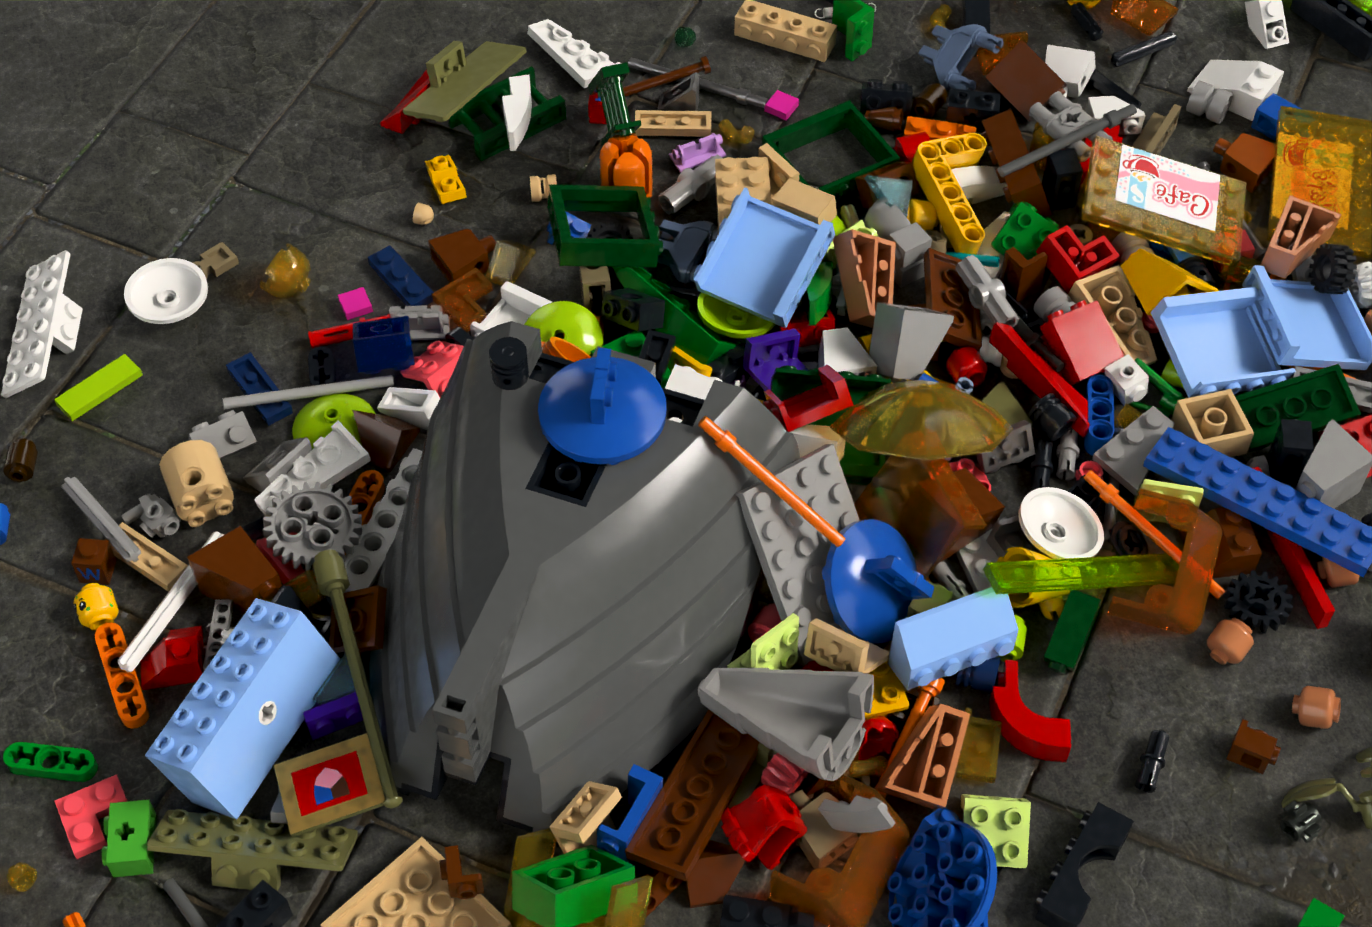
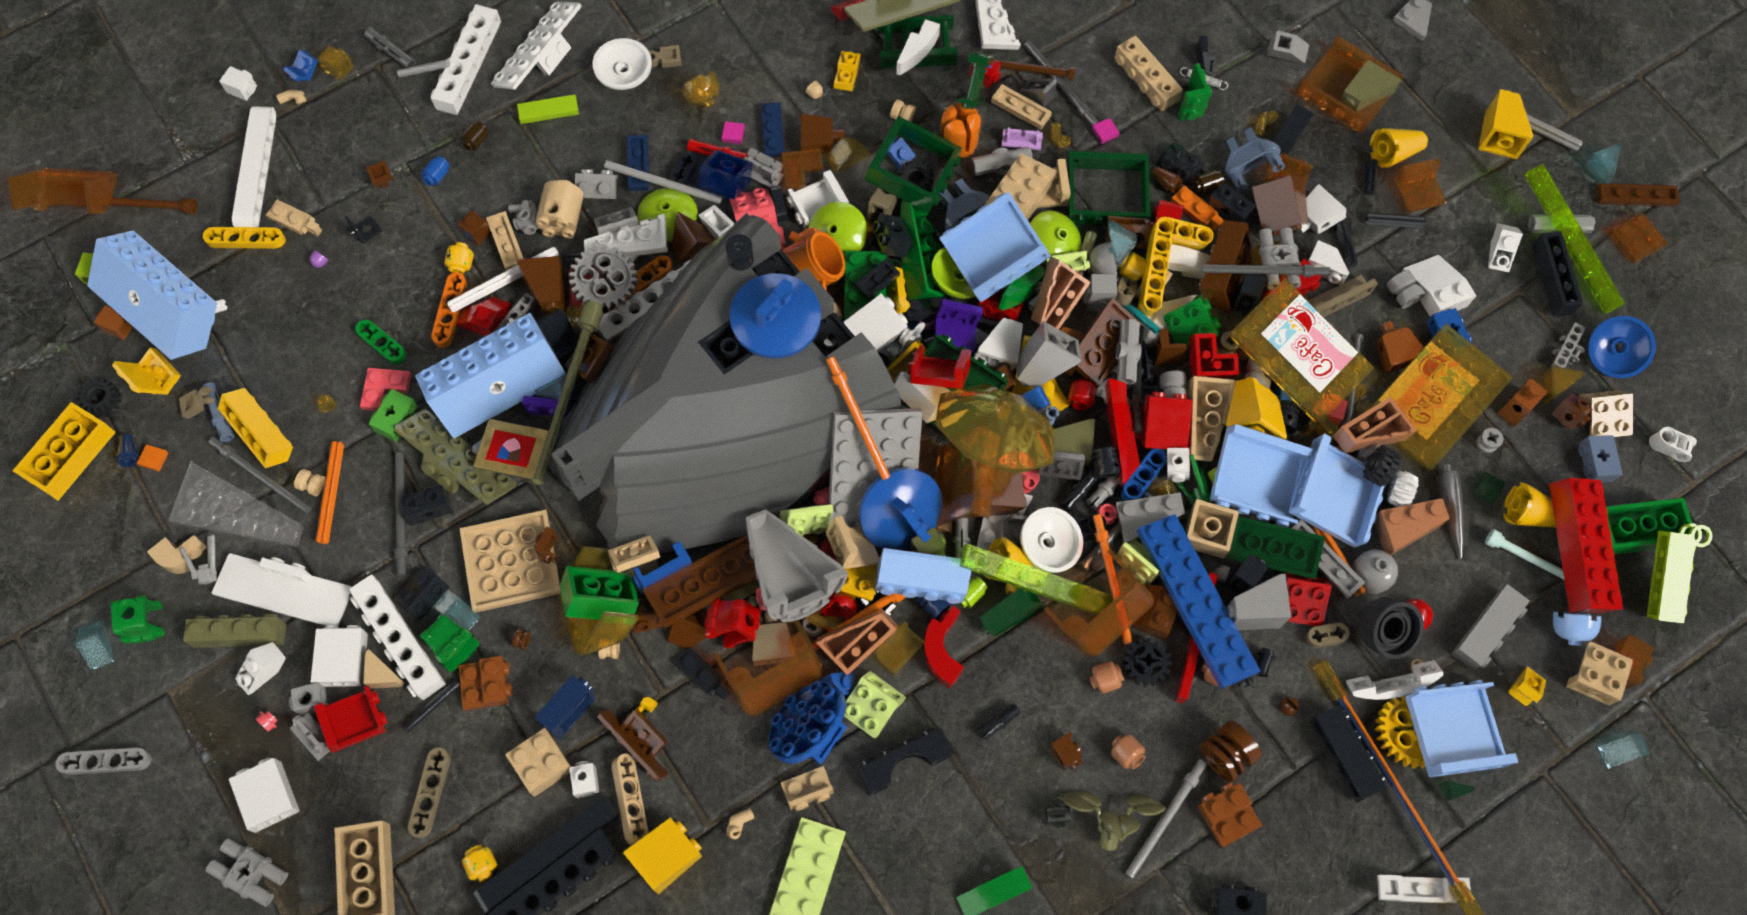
camera: 30 degrees right, 15 degrees up
(101, 519) = (493, 202): light grey axle -> none
(685, 36) = (1077, 42): clear green hinge -> none
(805, 201) = (1049, 223): tan brick -> none
(859, 816) = (785, 650): light grey slope -> none
(1132, 536) = (1097, 566): black gear -> none

